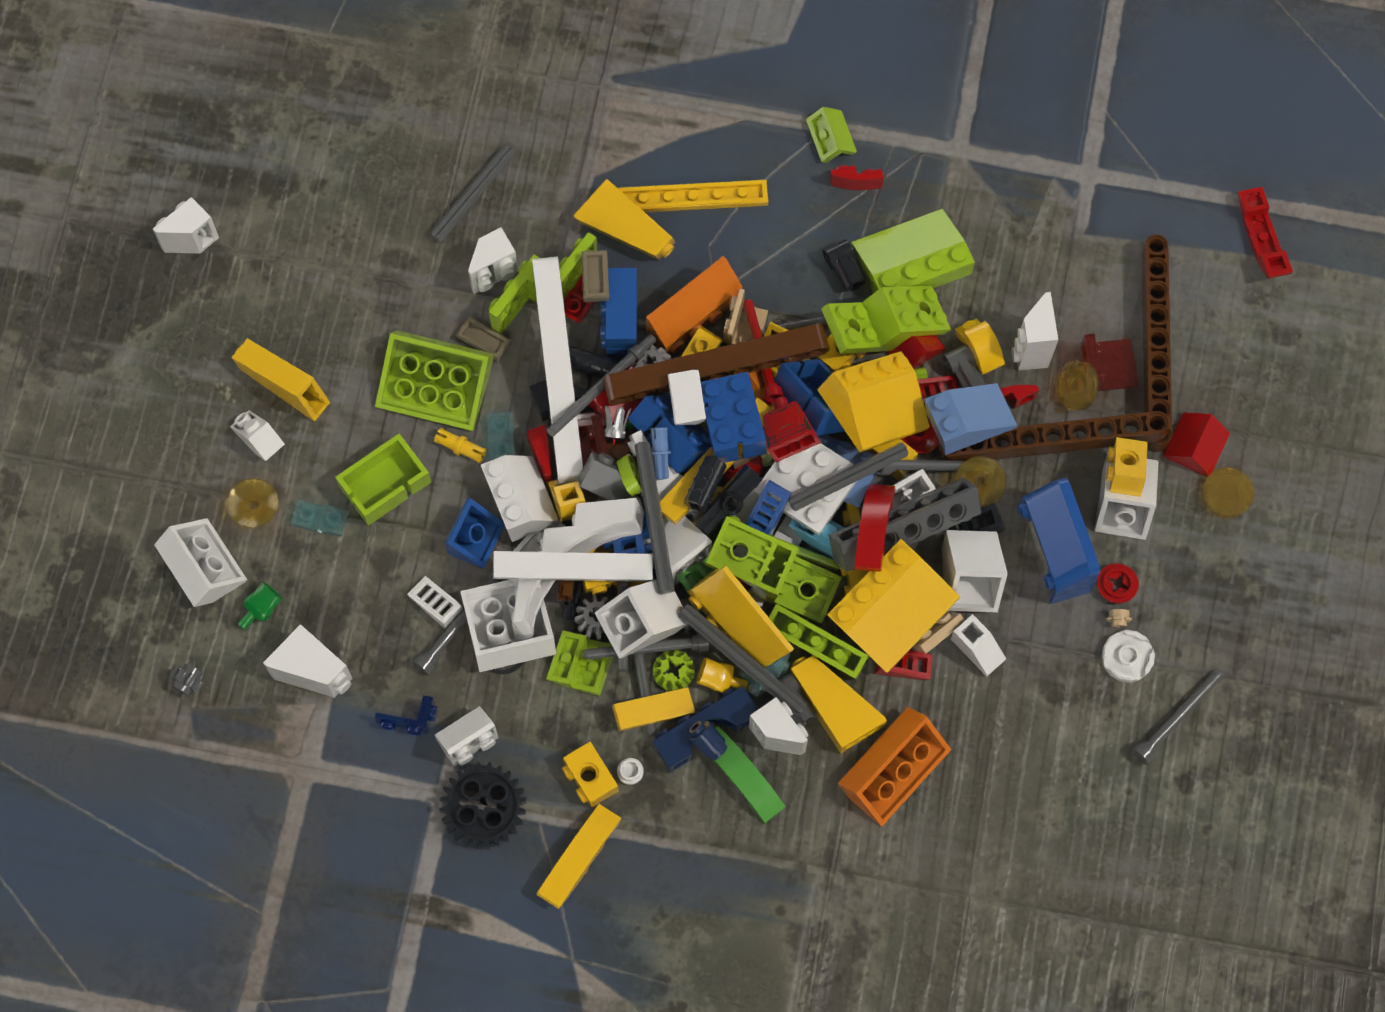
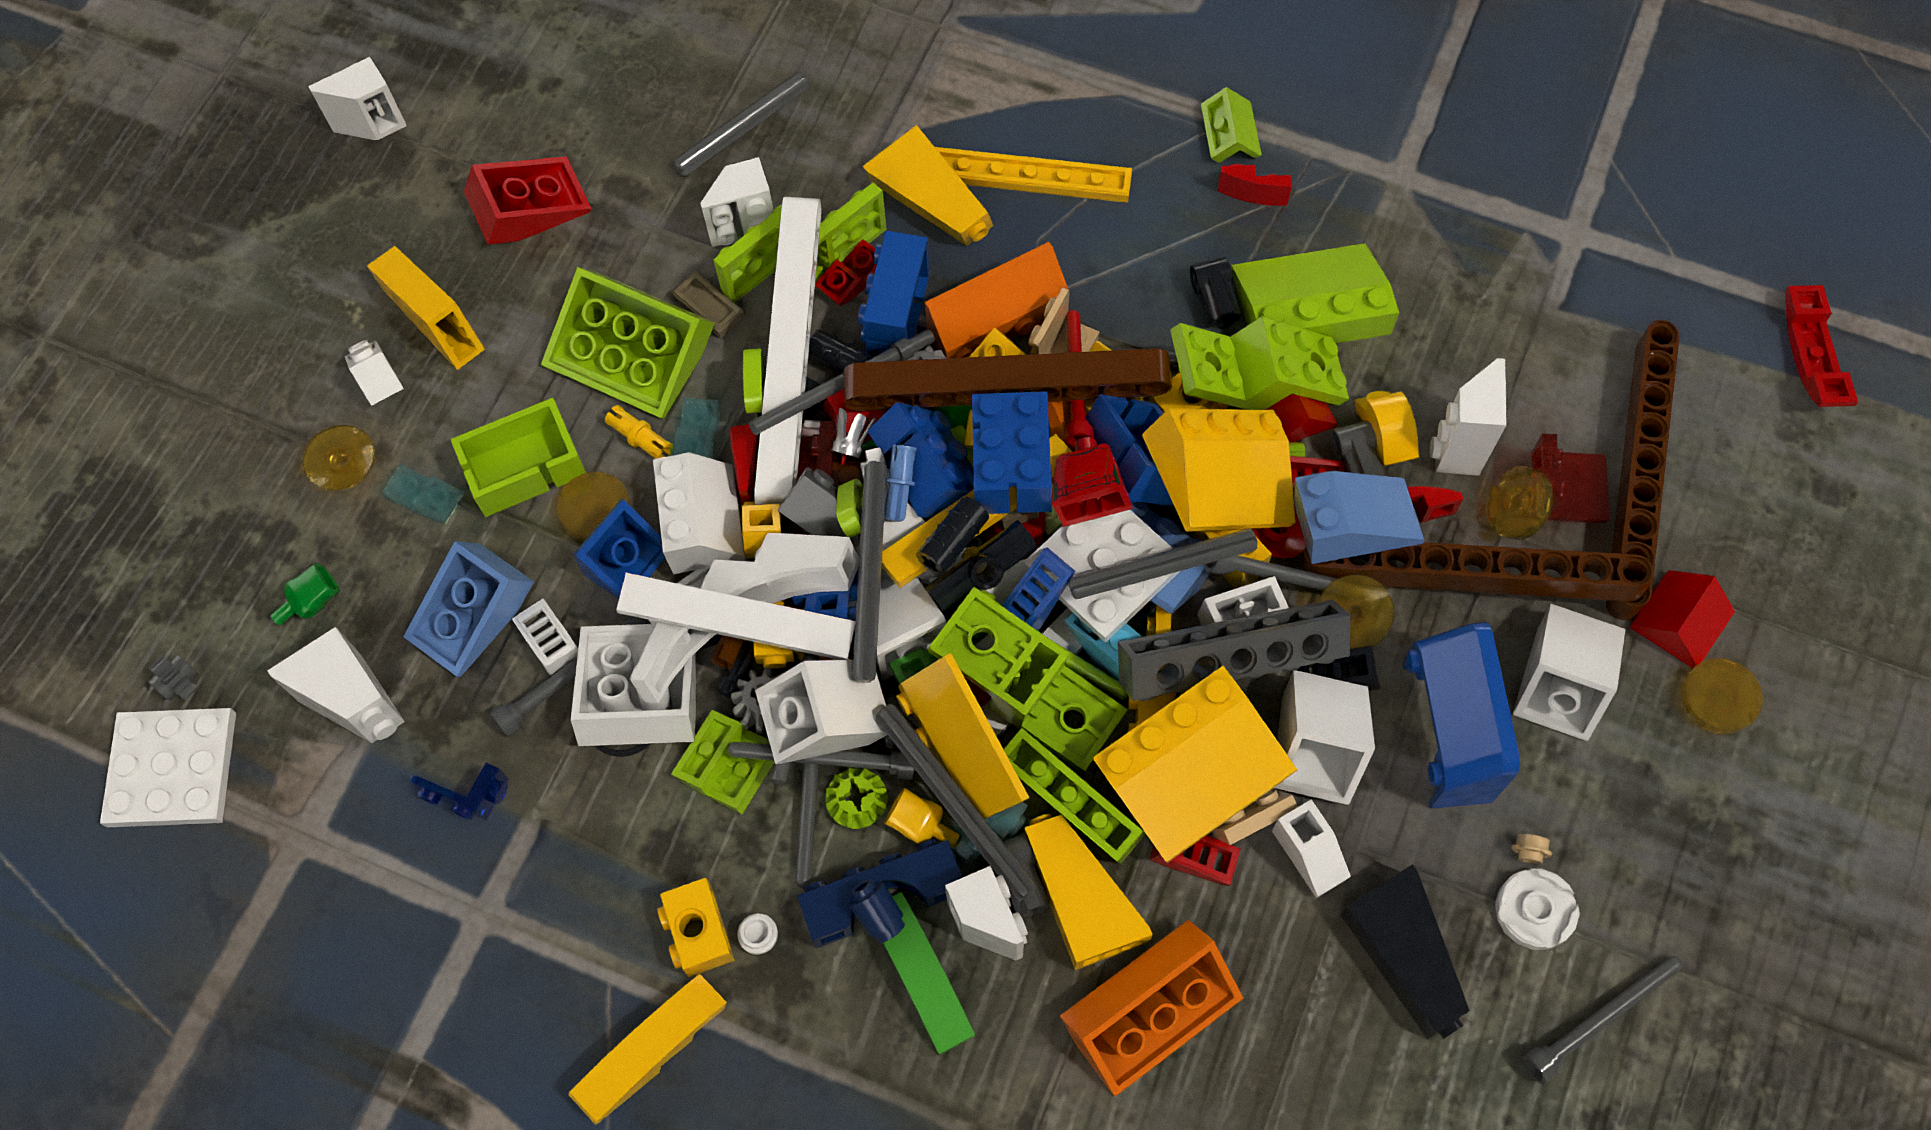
camera: 15 degrees right, 5 degrees down
(199, 561) = (244, 521): white slope -> none
(200, 741) = (168, 767): none -> white plate
(328, 282) = (524, 197): none -> red slope
(375, 592) = (467, 606): none -> medium blue slope
(440, 503) = (588, 501): none -> clear yellow tile
(467, 737) = (533, 836): white slope -> none
(487, 782) = (514, 975): black gear -> none
(538, 395) = (753, 379): none -> lime beam
(595, 276) = (868, 237): dark tan tile -> none
(653, 709) = (811, 848): yellow tile -> none
(686, 397) = (952, 412): white slope -> none
(873, 527) = (1185, 643): red slope -> none
(1050, 698) = (1409, 951): none -> black slope
(1127, 466) = (1580, 627): yellow brick -> none
(1129, 582) = (1554, 797): red gear -> none

